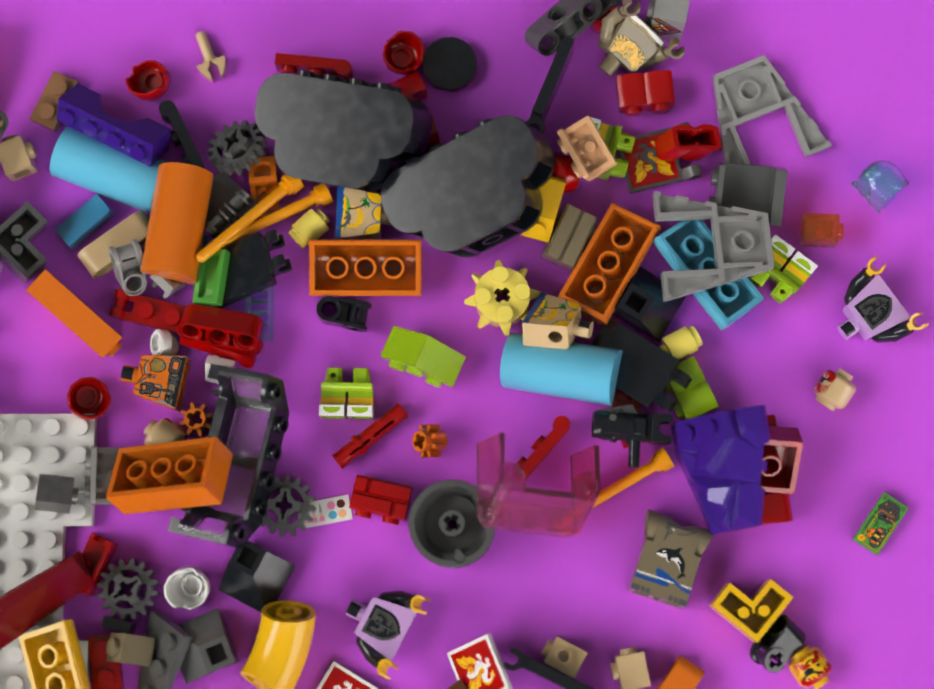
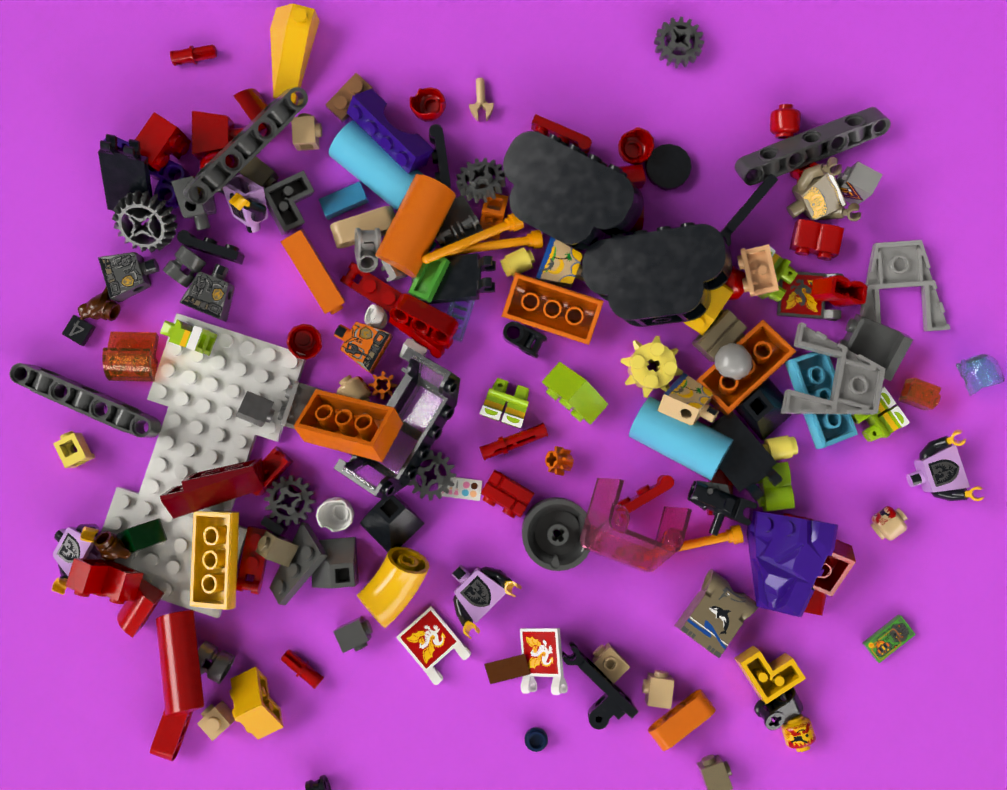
camera: 15 degrees right, 5 degrees up
(592, 260) = (733, 361): none -> light grey hair

